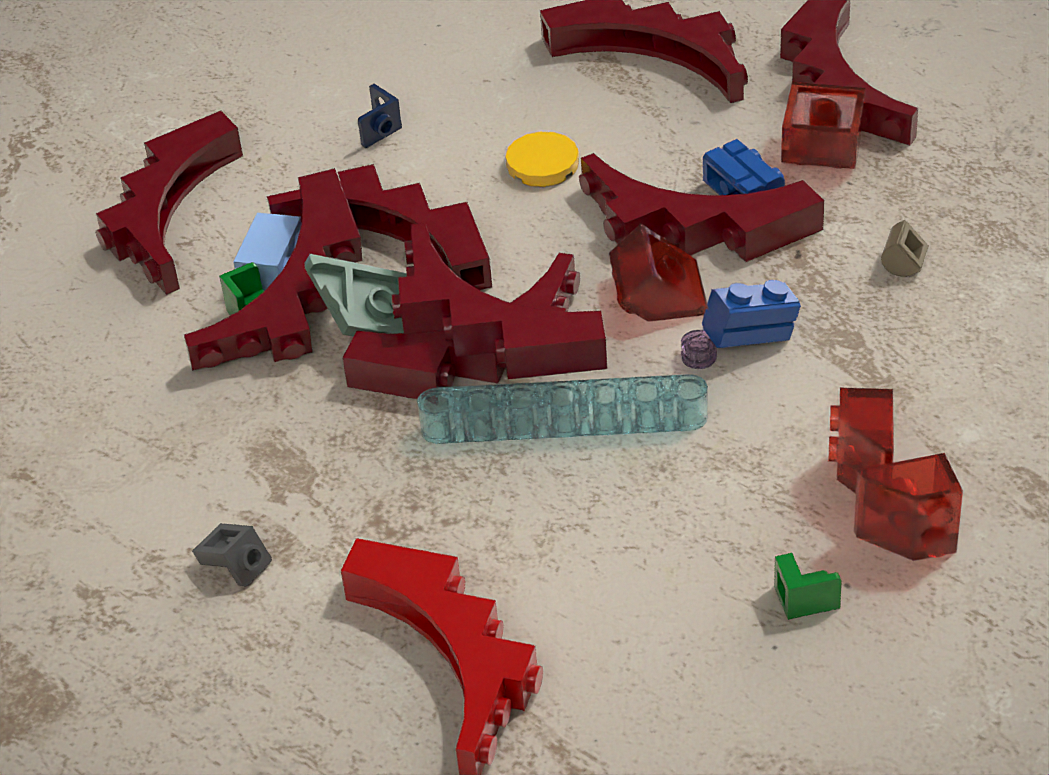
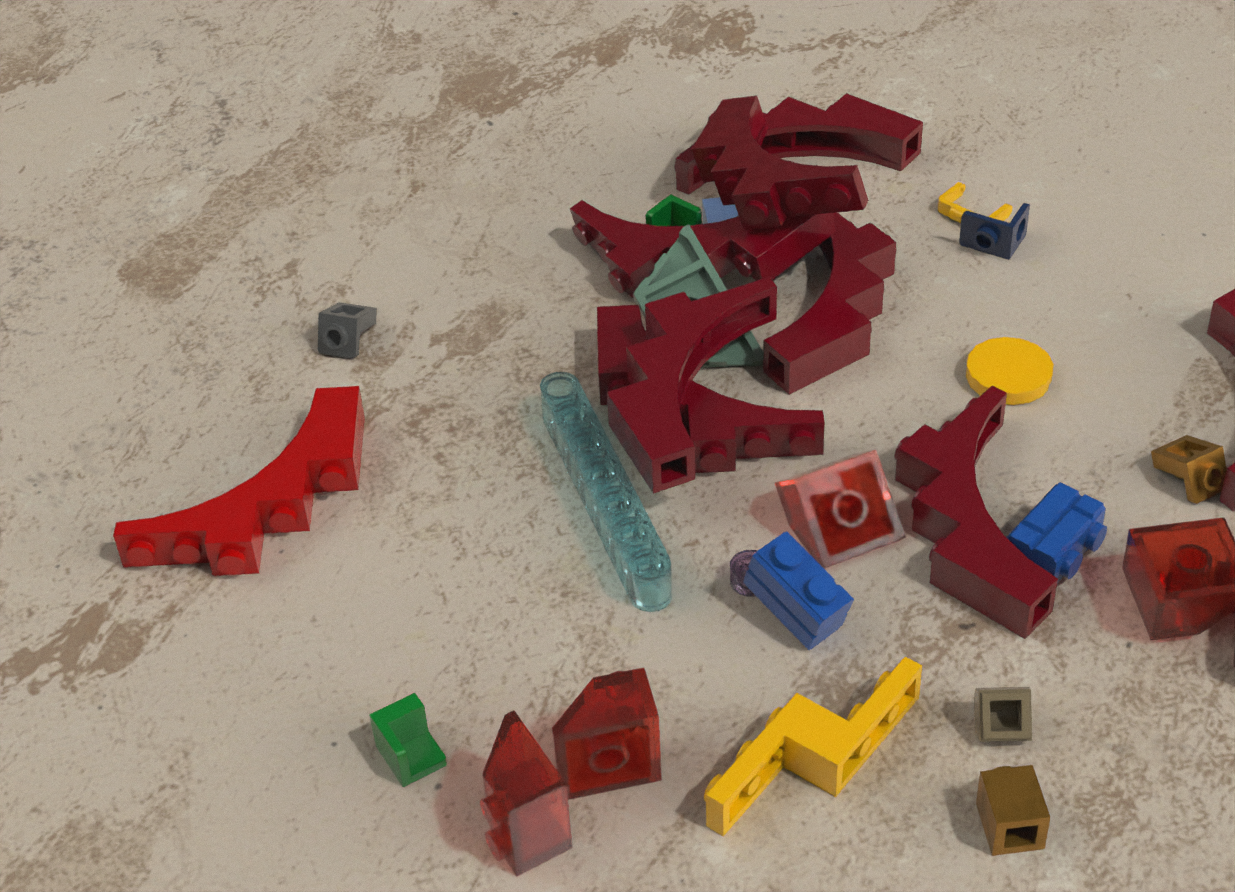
camera: 70 degrees right, 0 degrees up
(262, 204) = (761, 183): none -> dark red arch
(330, 135) = (955, 211): none -> yellow piece
(699, 94) = (1197, 462): none -> pearl gold bracket
(901, 350) = (812, 745): none -> yellow bracket
(992, 267) = (1012, 810): none -> pearl gold brick

